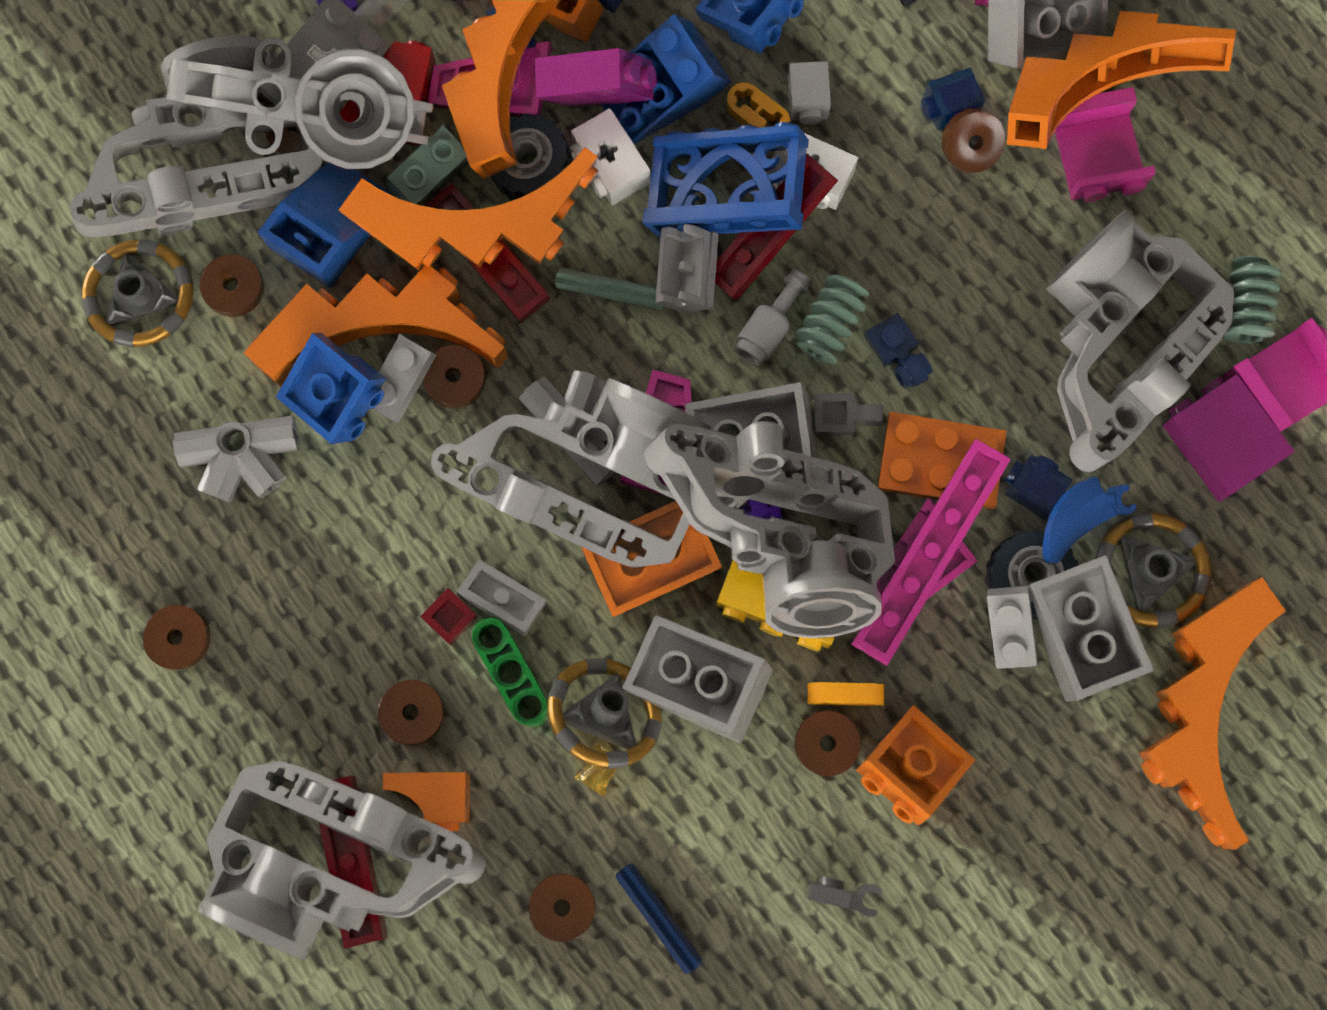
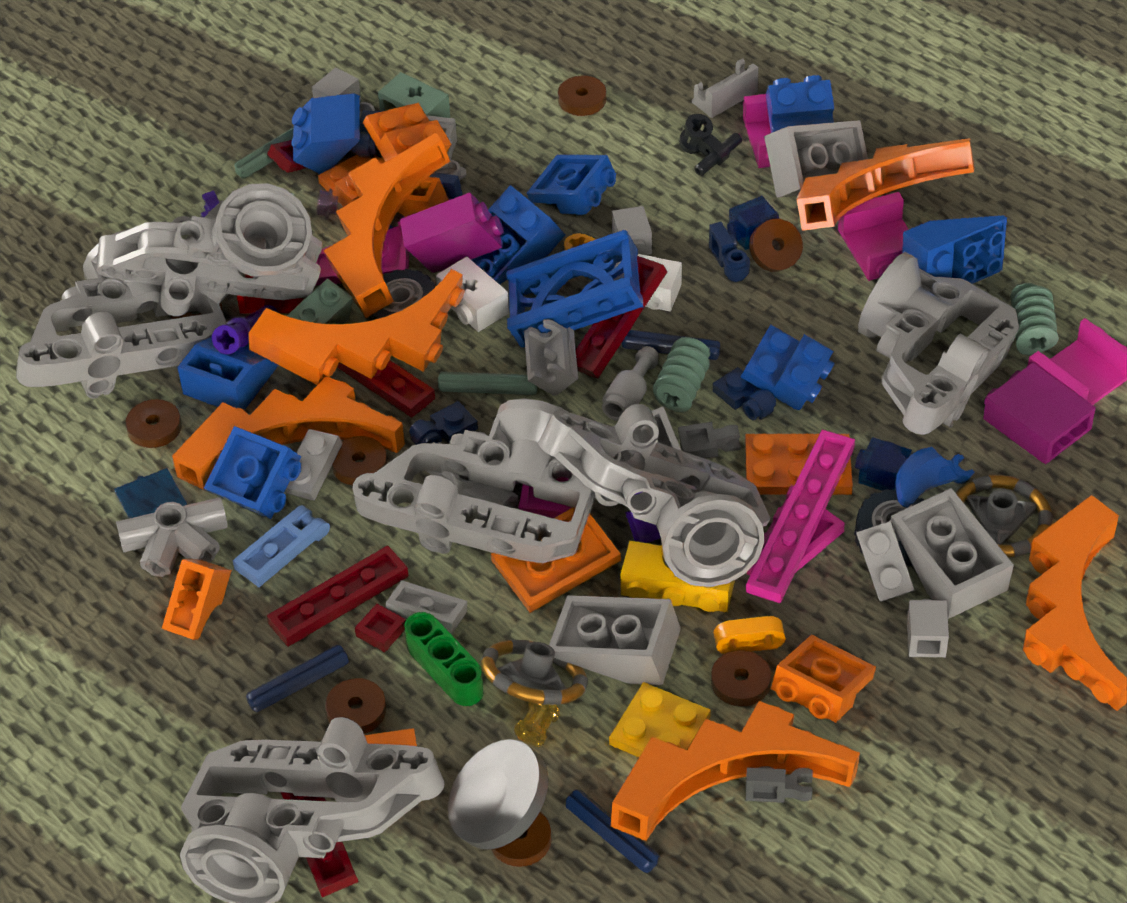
camera: 10 degrees left, 30 degrees down
(137, 293) = (70, 439): dark grey piece -> none
(160, 629) = (128, 666): reddish brown piece -> none
(221, 391) = (148, 493): none -> piece
(253, 544) = (195, 595): none -> orange arch
(330, 191) = (234, 334): none -> dark purple pin
(353, 485) = (280, 545): none -> medium blue plate
(353, 666) = (297, 678): none -> dark blue axle
(408, 565) = (337, 596): none -> dark red plate
(543, 872) = (498, 794): none -> piece
(563, 340) = (443, 424): none -> dark blue plate
(730, 793) = (658, 716): none -> yellow plate
(830, 264) = (663, 342): none -> dark blue axle
(837, 844) = (718, 754): none -> orange arch
(912, 130) = (725, 250): none -> dark blue plate
(955, 326) = (789, 367): none -> blue plate
(1041, 717) = (927, 628): none -> light grey brick
(1179, 194) = (959, 247): none -> blue slope

